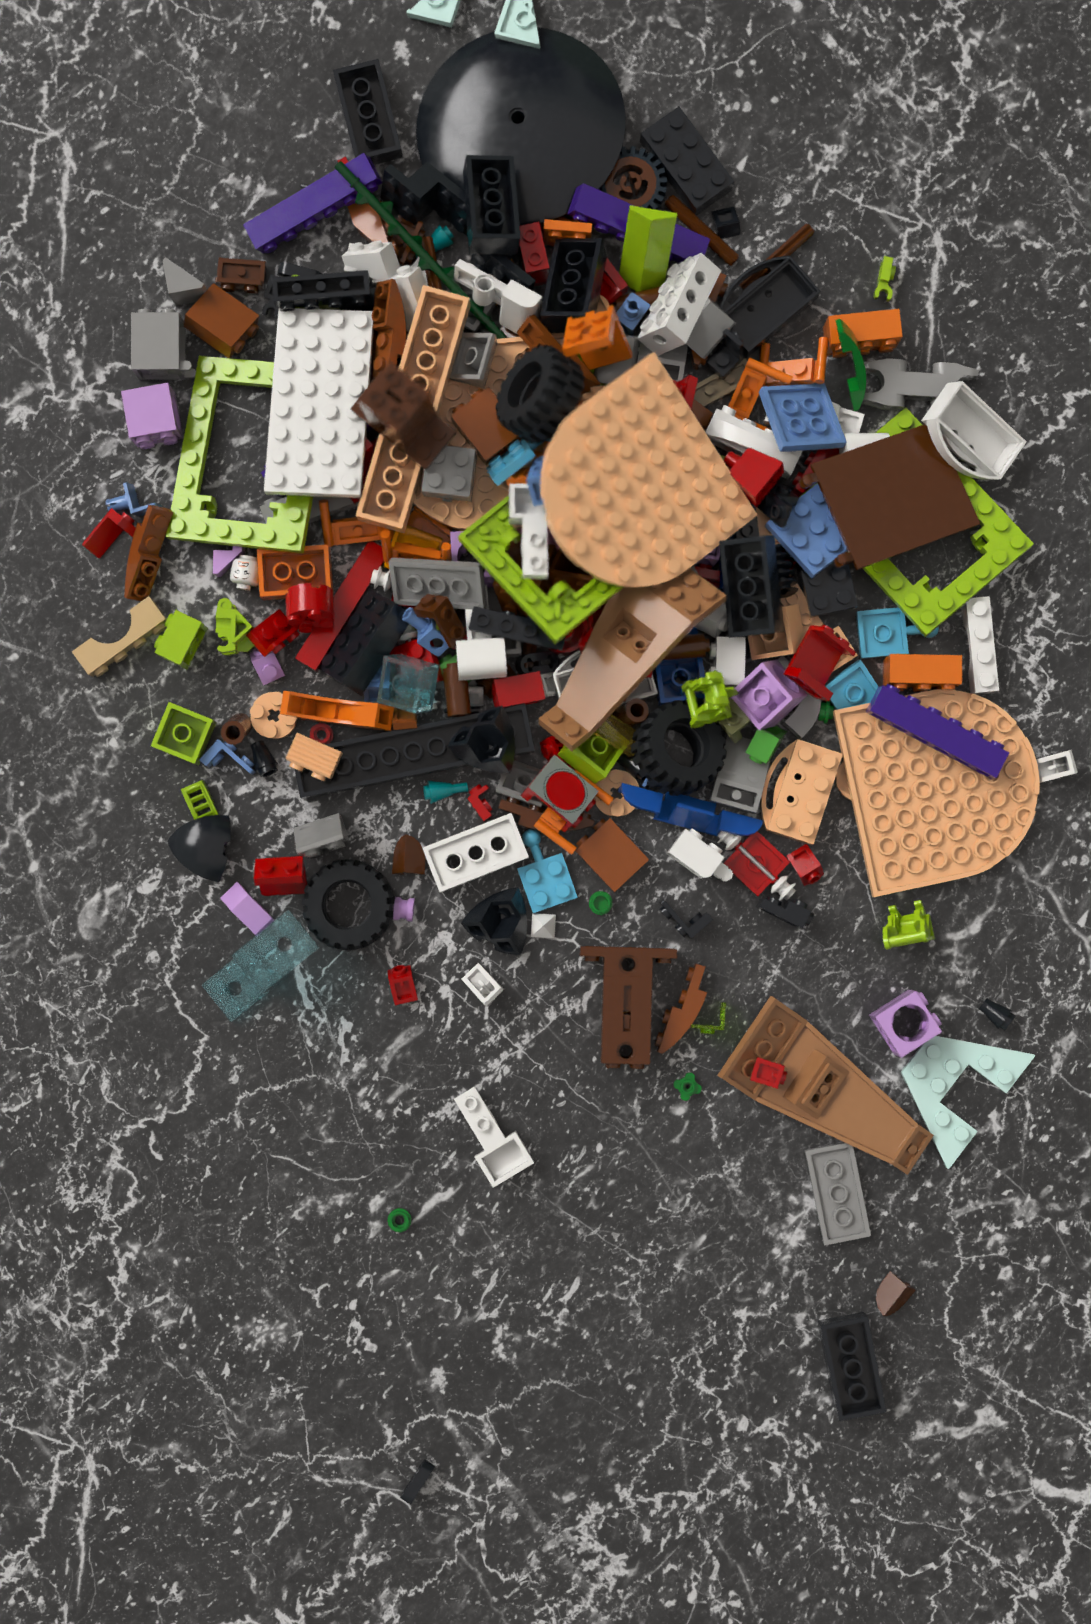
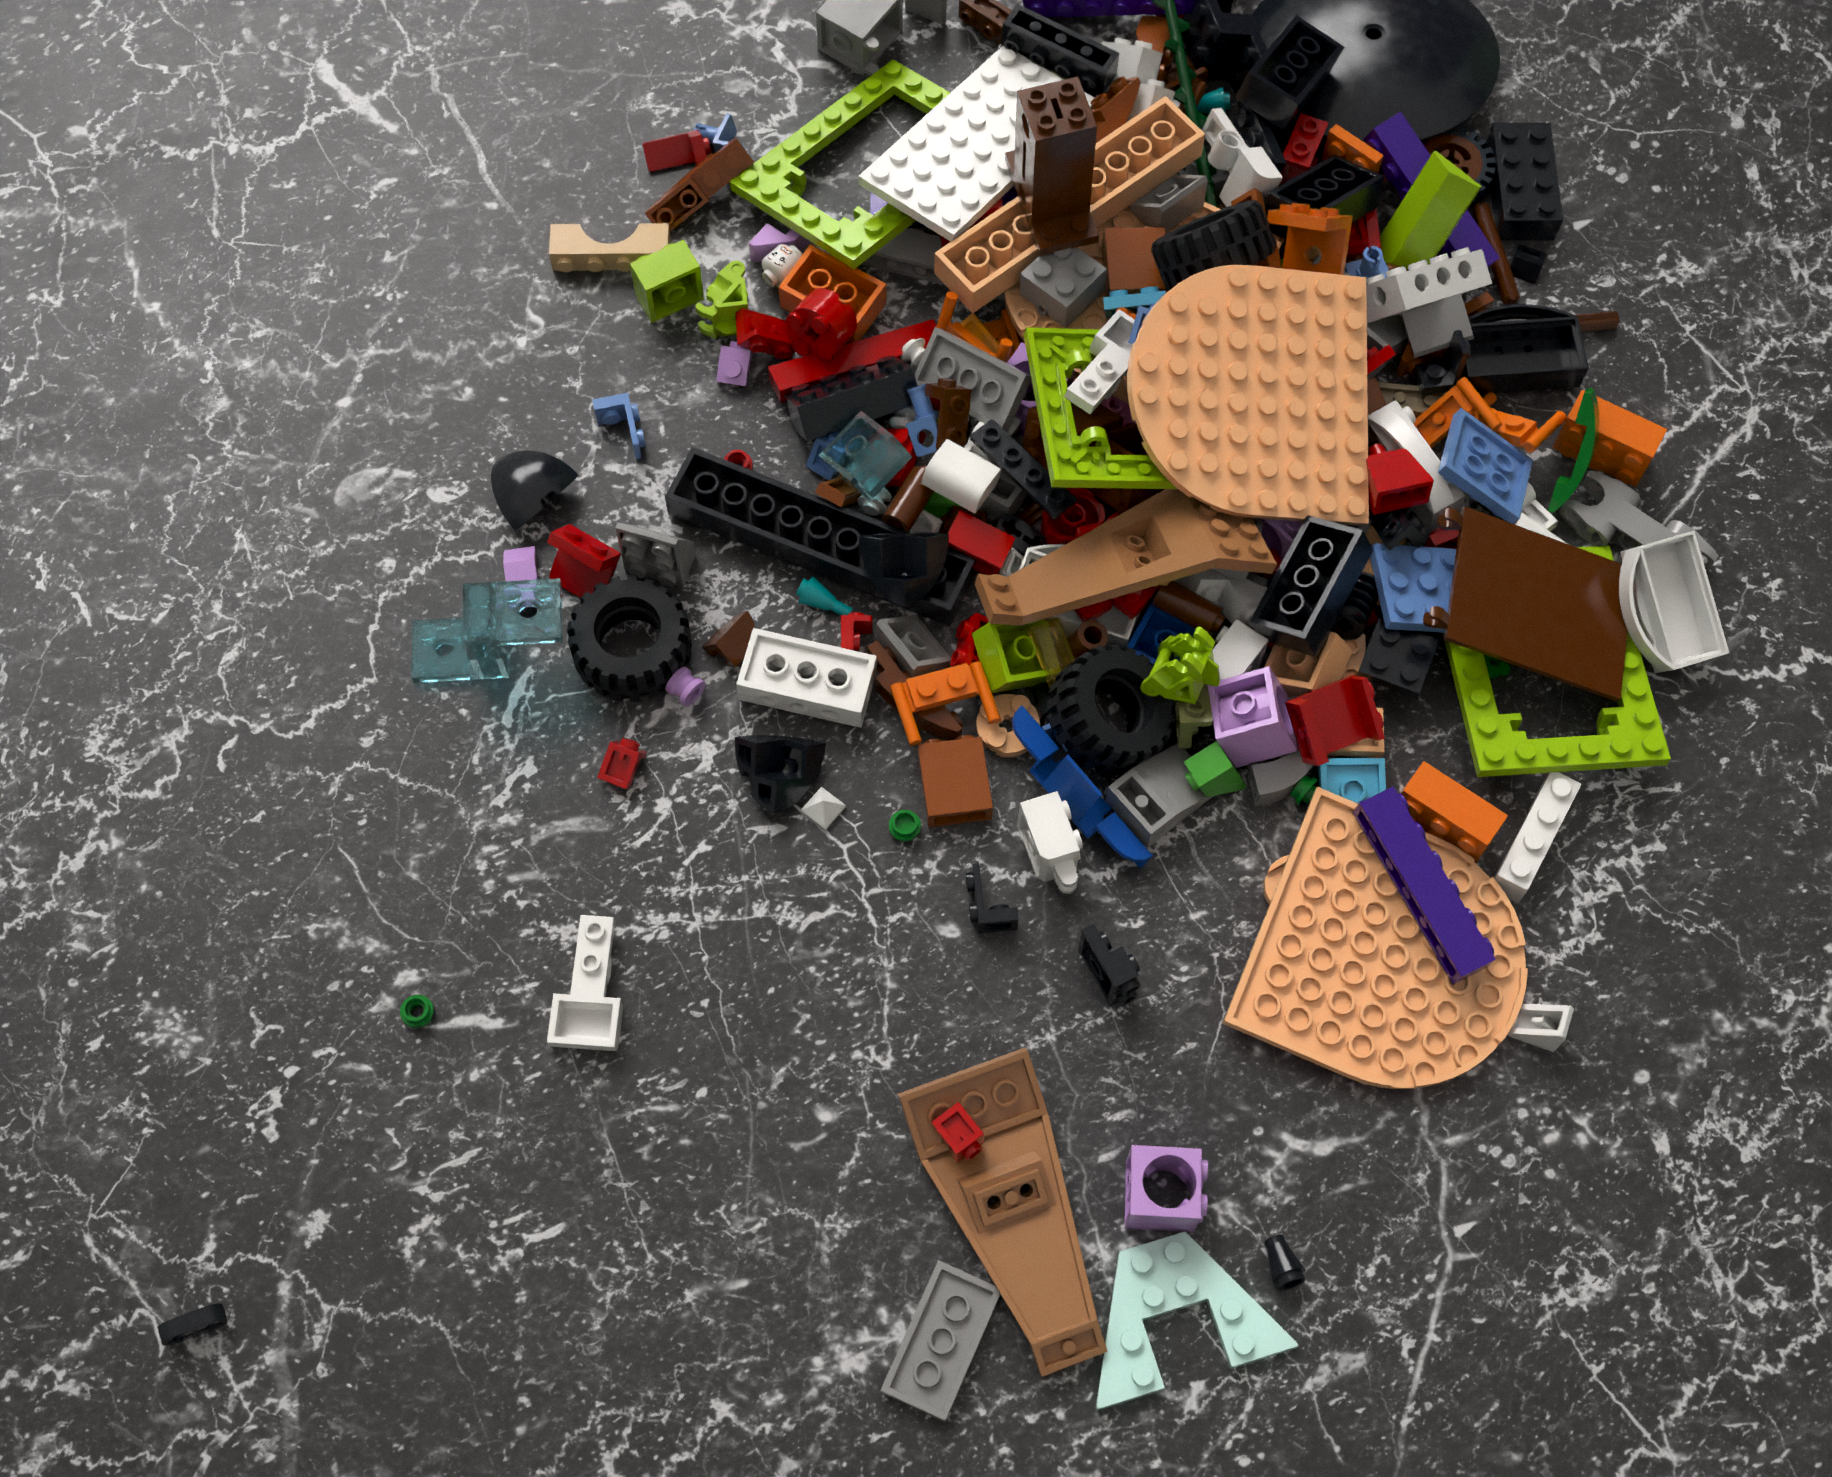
camera: 35 degrees right, 20 degrees down
(152, 415) = (804, 73): lavender brick -> none
(183, 733) = (597, 367): lime brick -> none
(205, 794) = (566, 433): lime slope -> none
(221, 321) = (938, 38): dark orange brick -> none
(236, 728) = (654, 394): reddish brown brick -> none
(260, 714) = (703, 401): light nougat plate -> none
(264, 761) = (658, 449): black cone -> none
(313, 756) = (710, 460): light nougat brick -> none
(337, 711) = (779, 453): orange arch -> none
(348, 529) = (917, 292): orange plate -> none
(482, 984) = (709, 824): white slope -> none
(547, 879) = (861, 761): medium azure plate -> none
(562, 791) = (948, 668): panel -> none
(626, 1001) = (856, 938): reddish brown brick -> none
(679, 1020) = (901, 1009): dark orange slope -> none
(694, 1087) = (858, 1099): green plate -> none
(710, 1029) = (928, 1042): clear neon green bracket -> none
(757, 864) = (1113, 896): red plate -> none
(806, 865) = (1168, 940): red bracket -> none
(810, 794) = (1202, 880): light nougat piece -> none
(884, 632) = (1438, 746): medium azure plate -> none
(886, 273) = (1673, 405): lime plate -> none
(907, 928) = (1231, 1088): lime piece -> none

